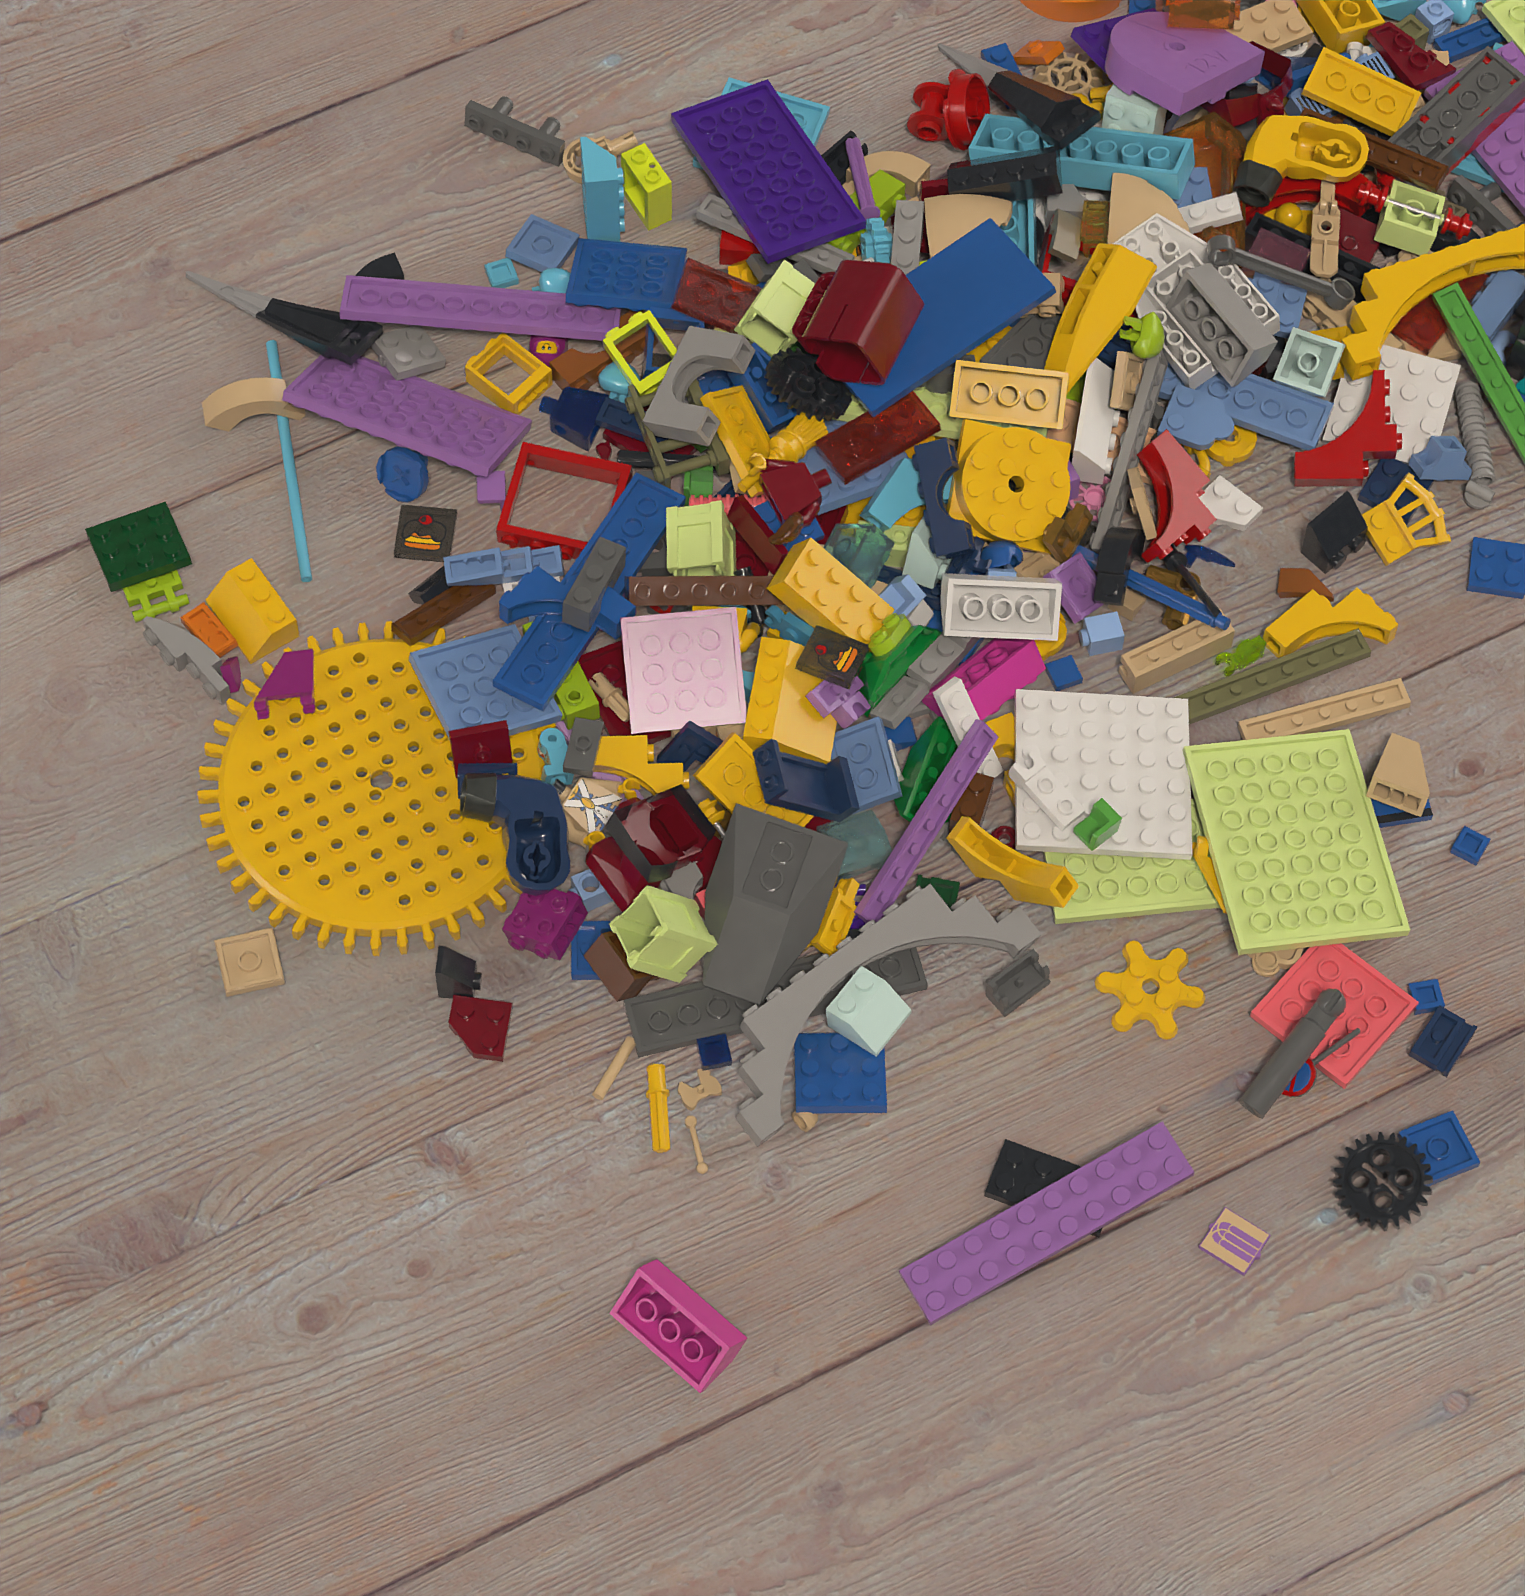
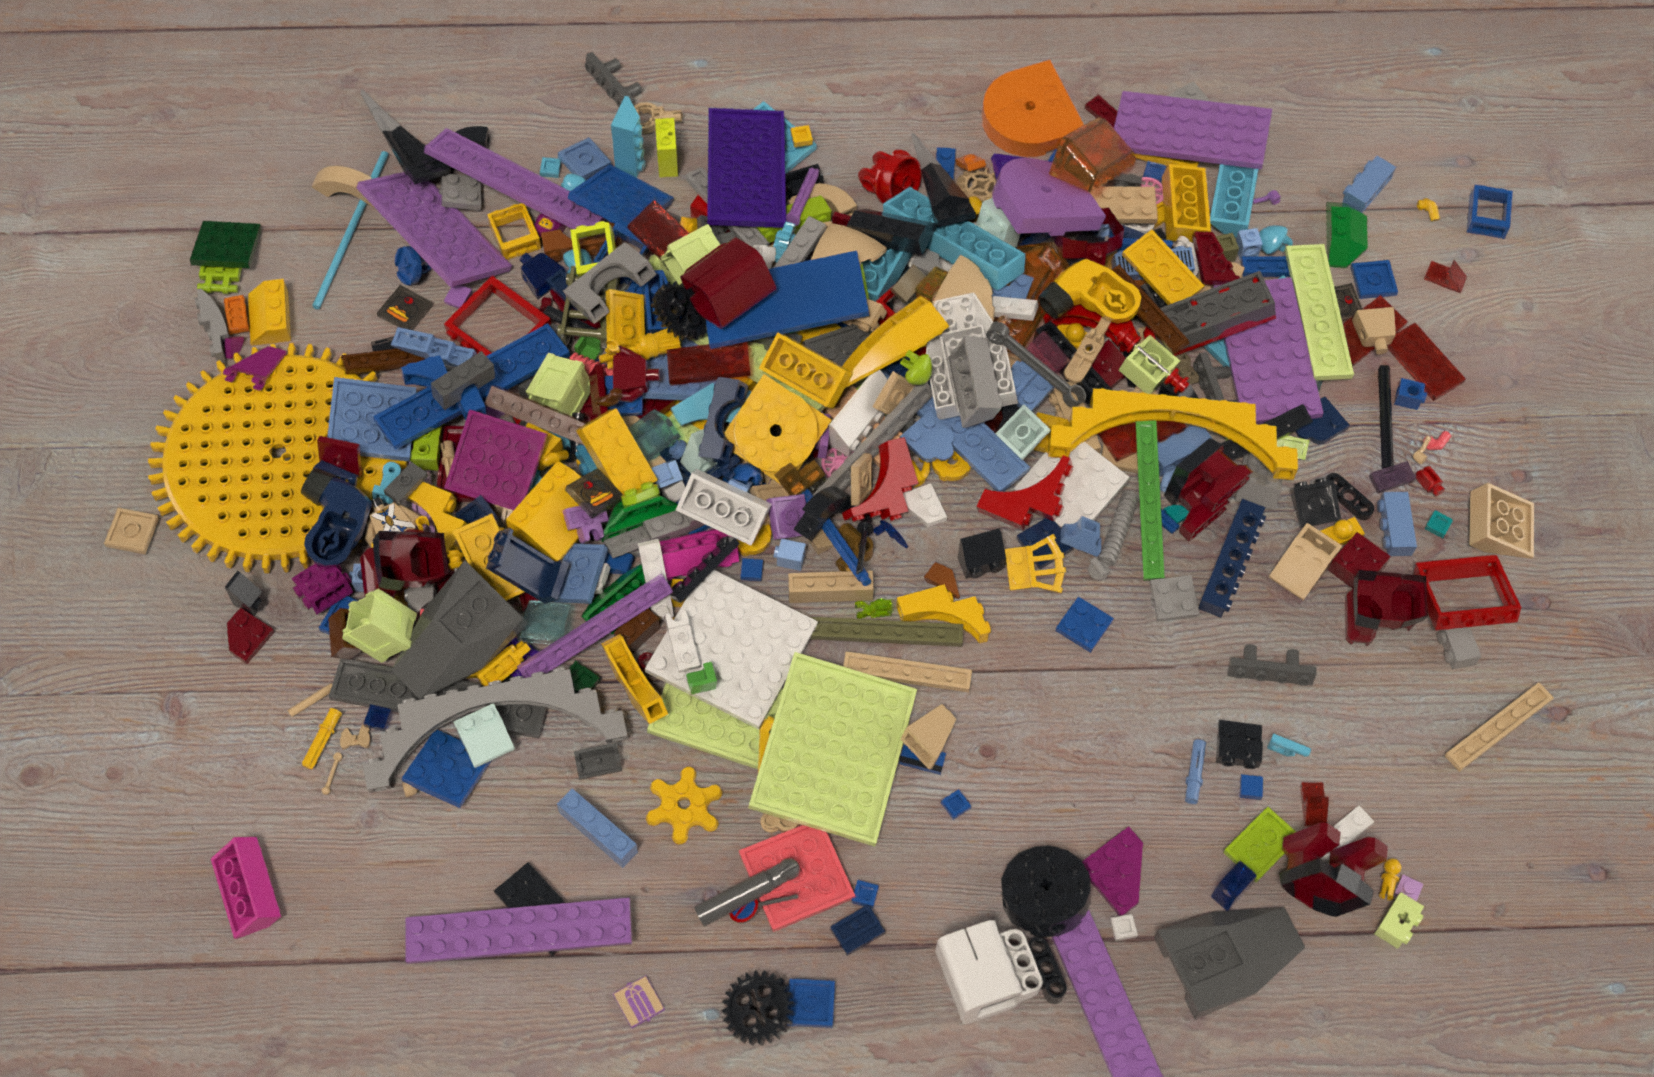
camera: 25 degrees right, 0 degrees up
(808, 103) = (801, 136): none -> yellow plate
(895, 562) = (677, 449): none -> medium blue plate
(1019, 692) = (708, 564): none -> black plate
(1067, 1061) = (597, 828): none -> medium blue brick

